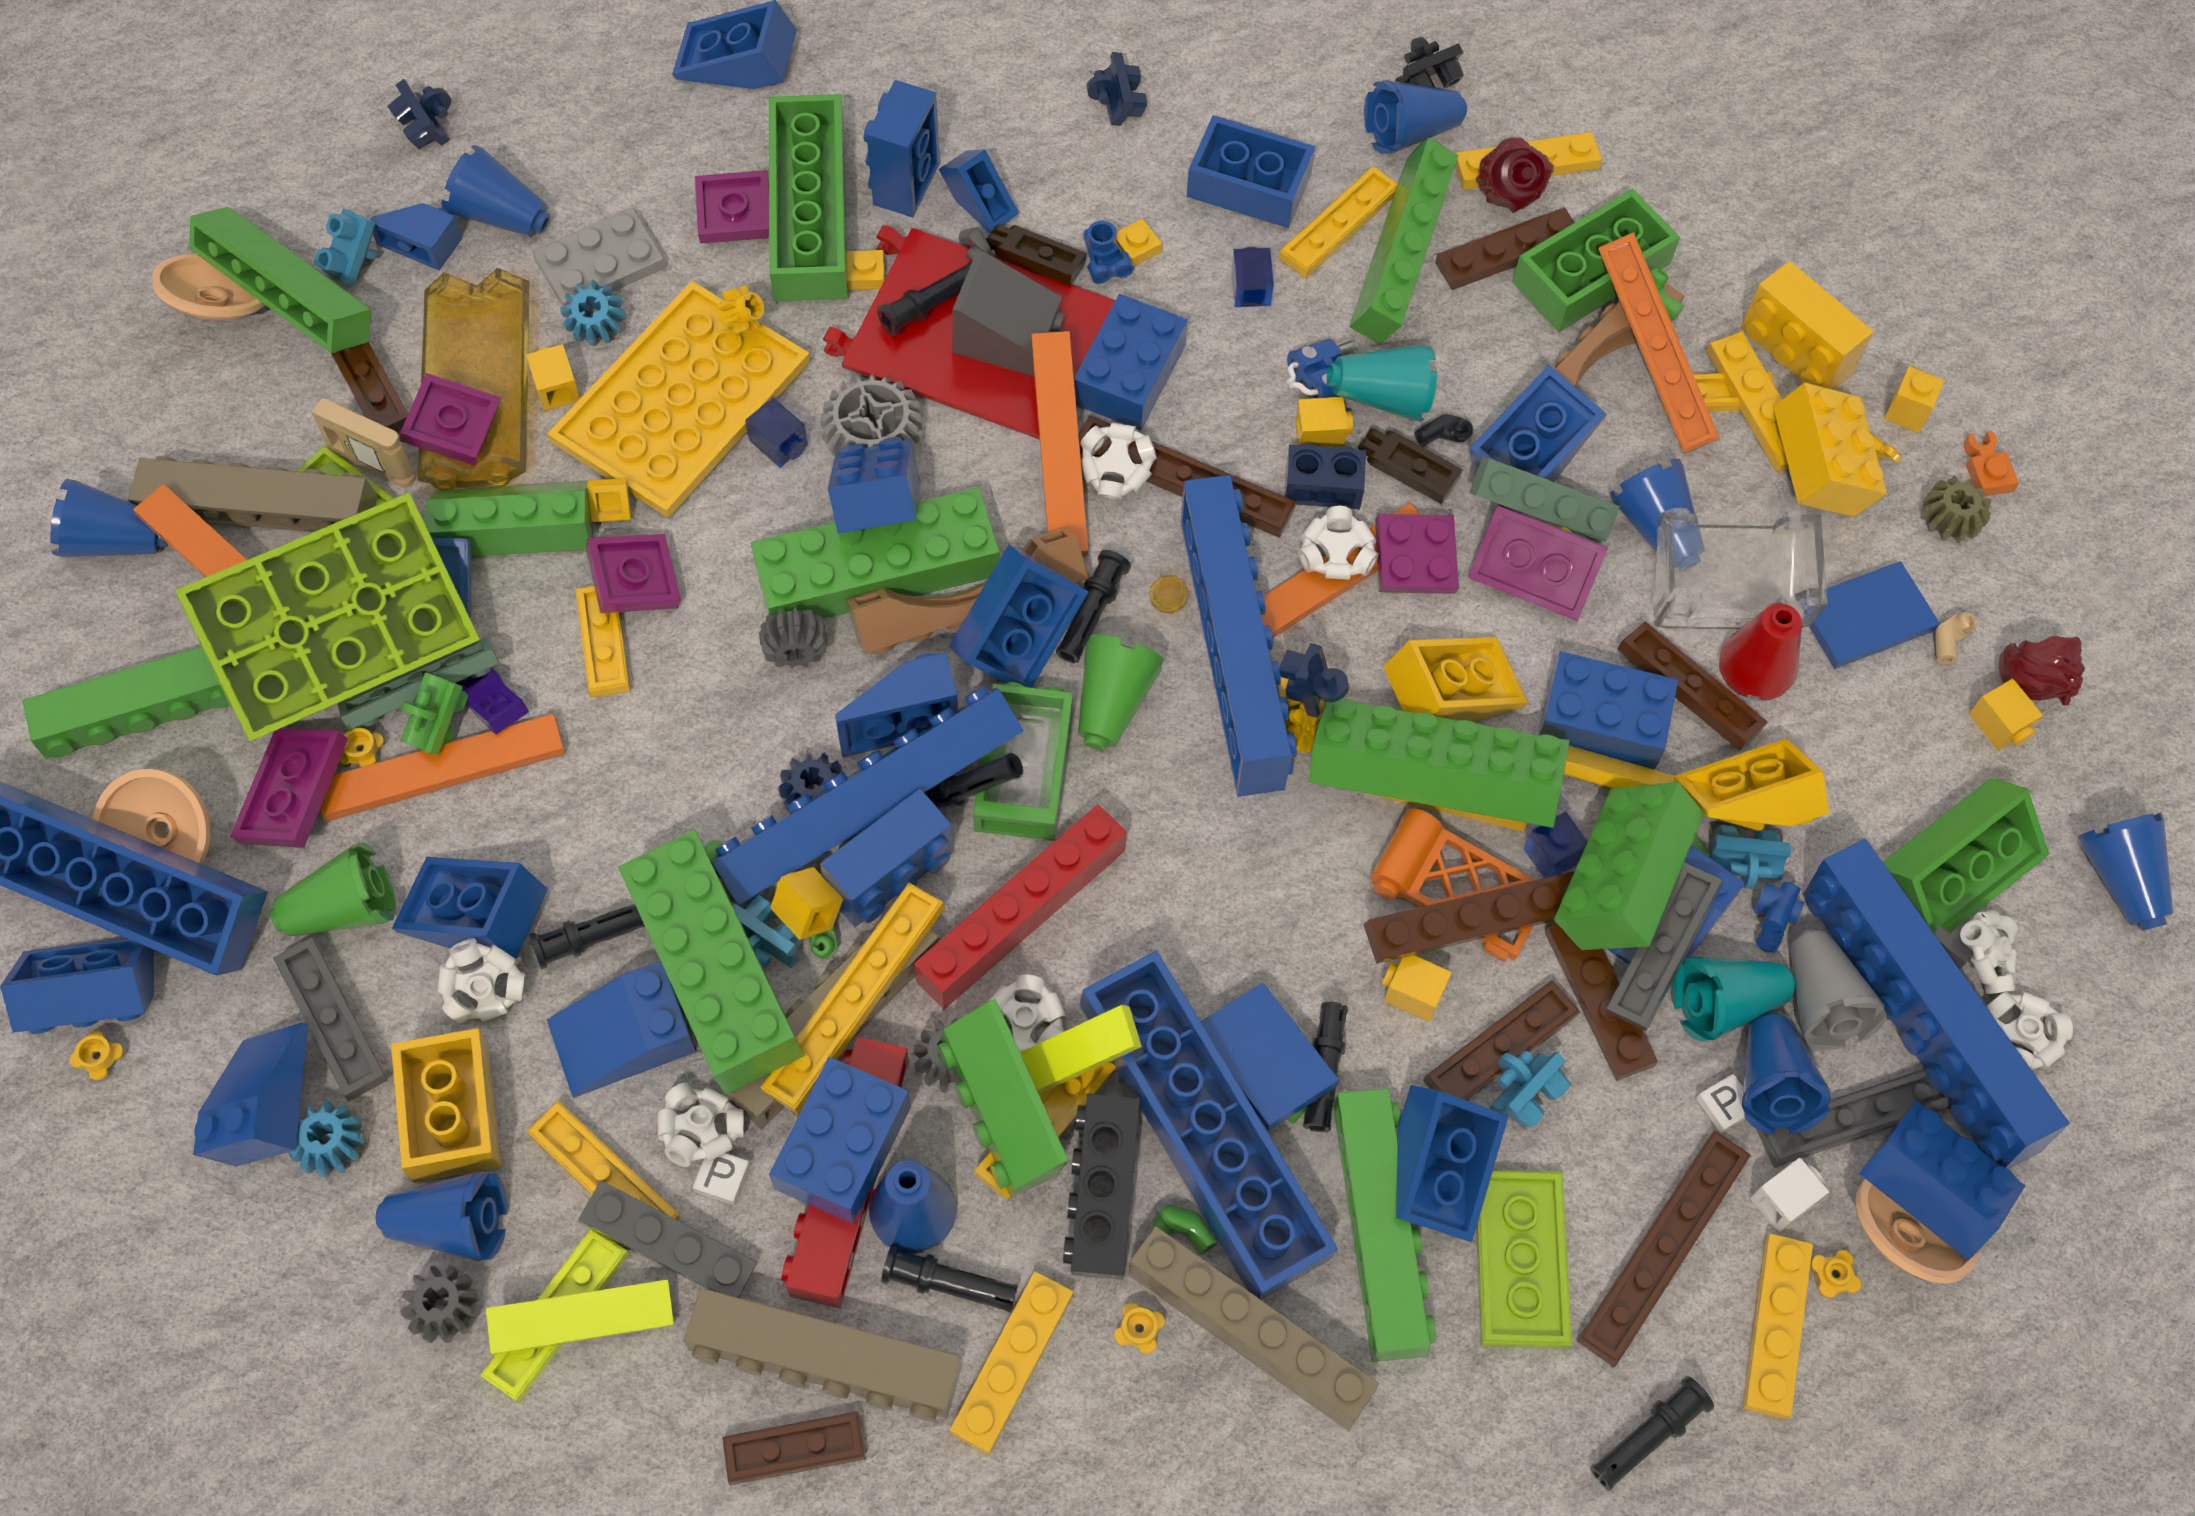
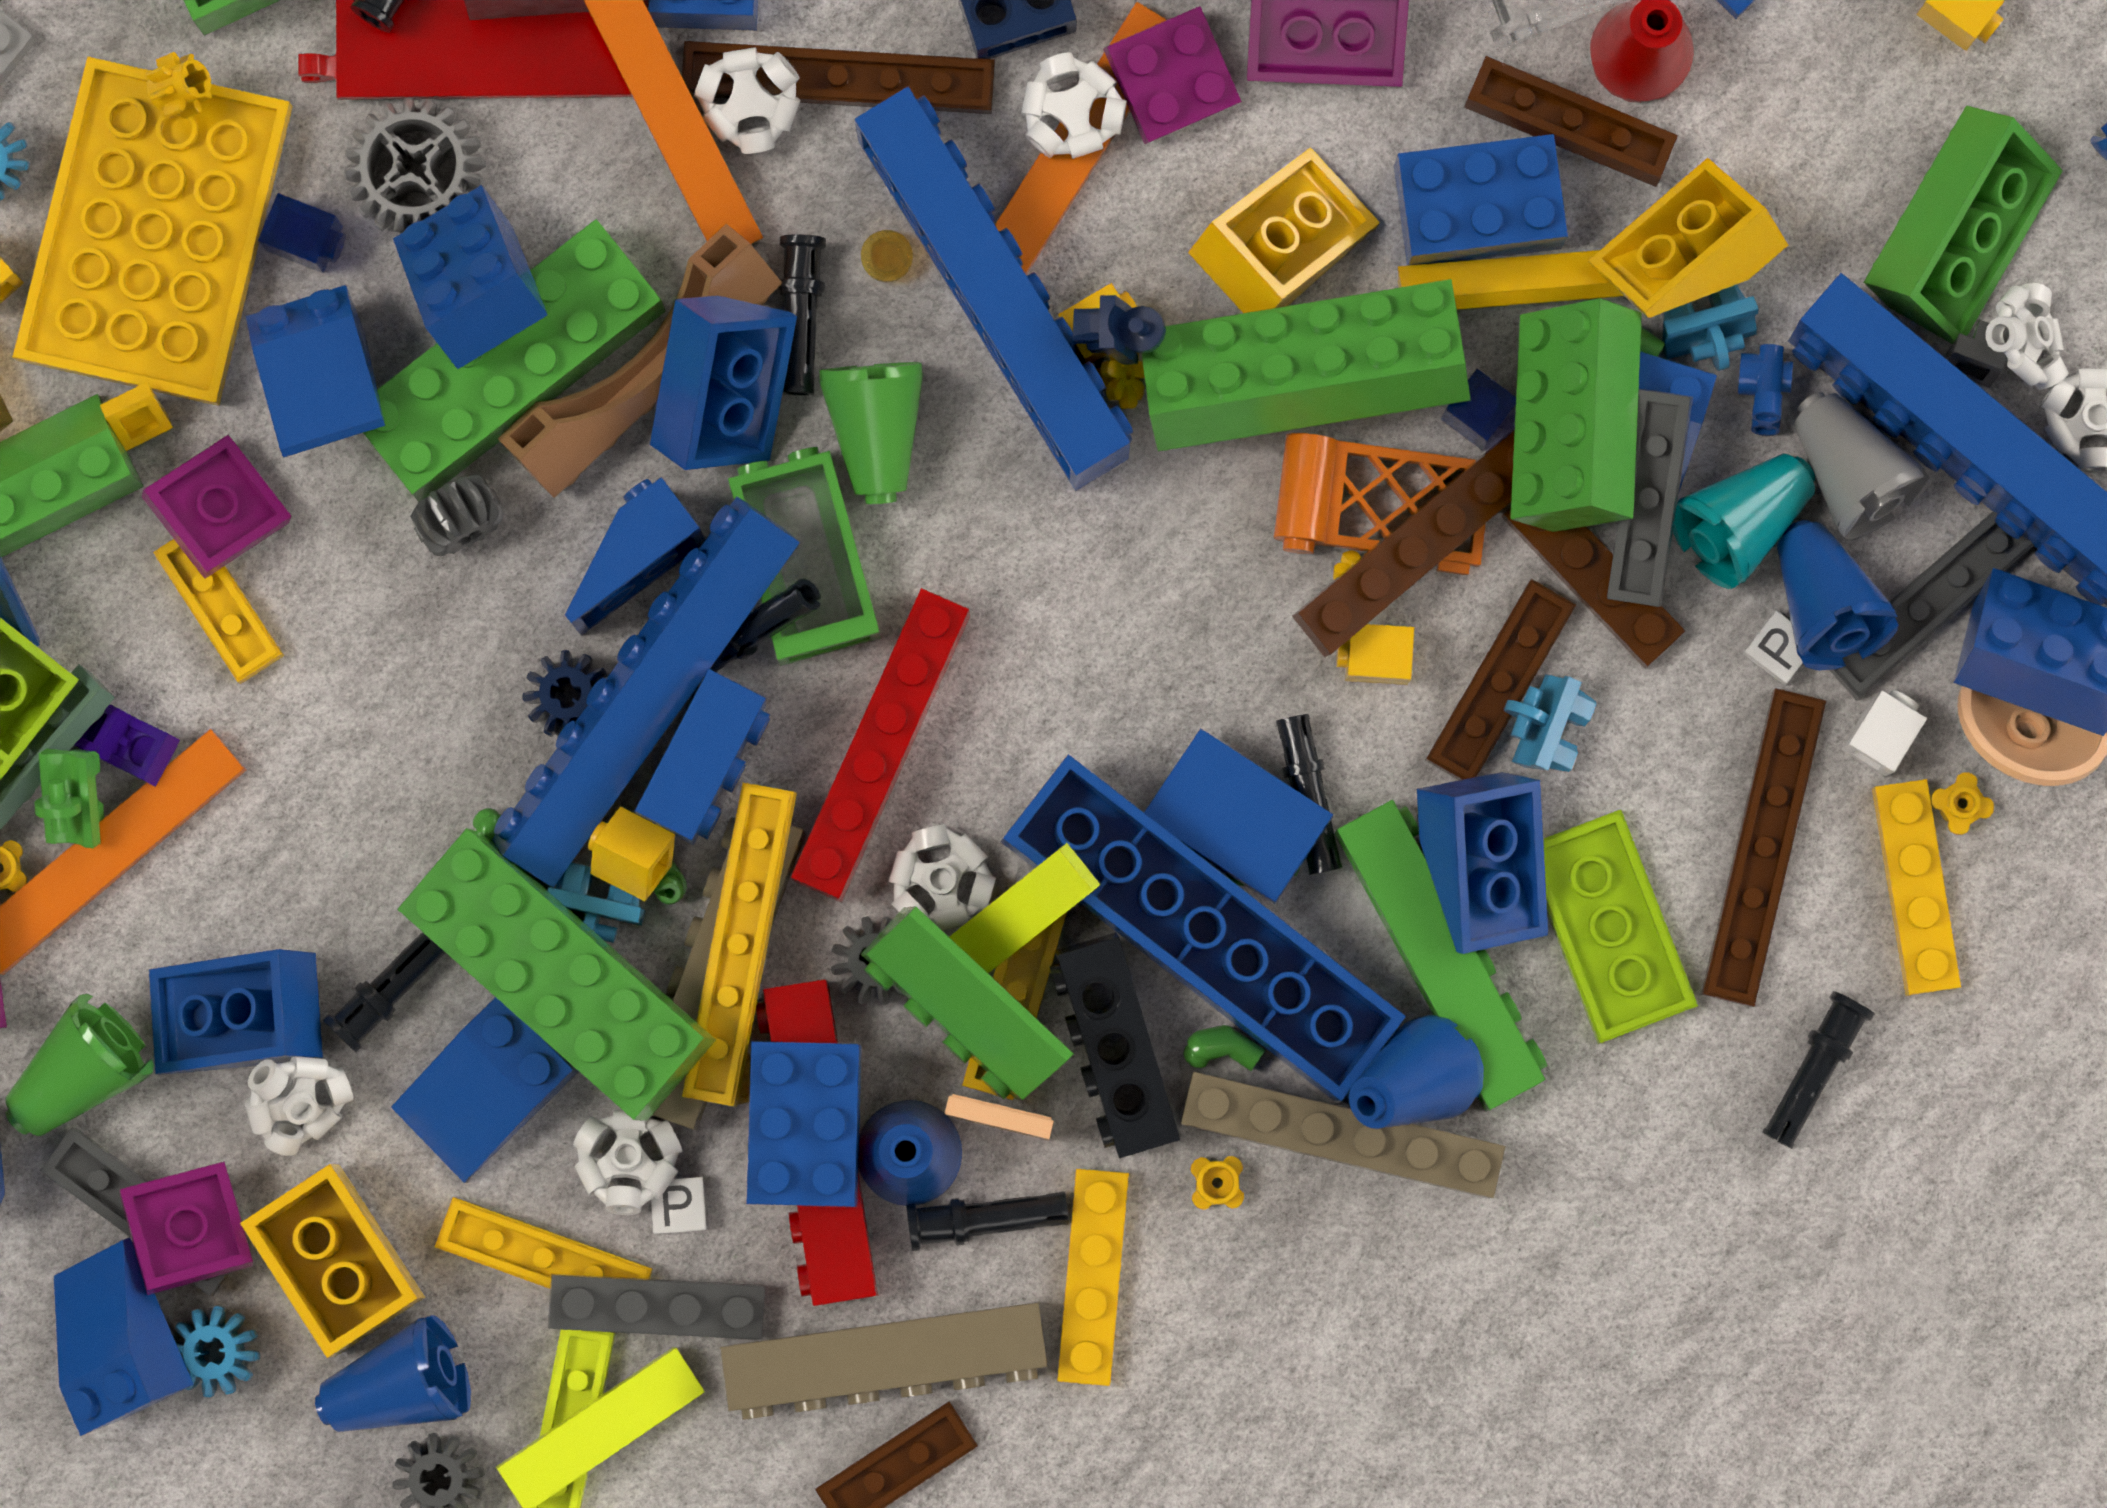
camera: 20 degrees left, 20 degrees up
(351, 1035) = (186, 1228): none -> magenta plate
(742, 504) = (315, 370): none -> blue slope
(991, 1201) = (999, 1117): none -> light nougat tile
(1331, 1301) = (1419, 1076): none -> blue cone

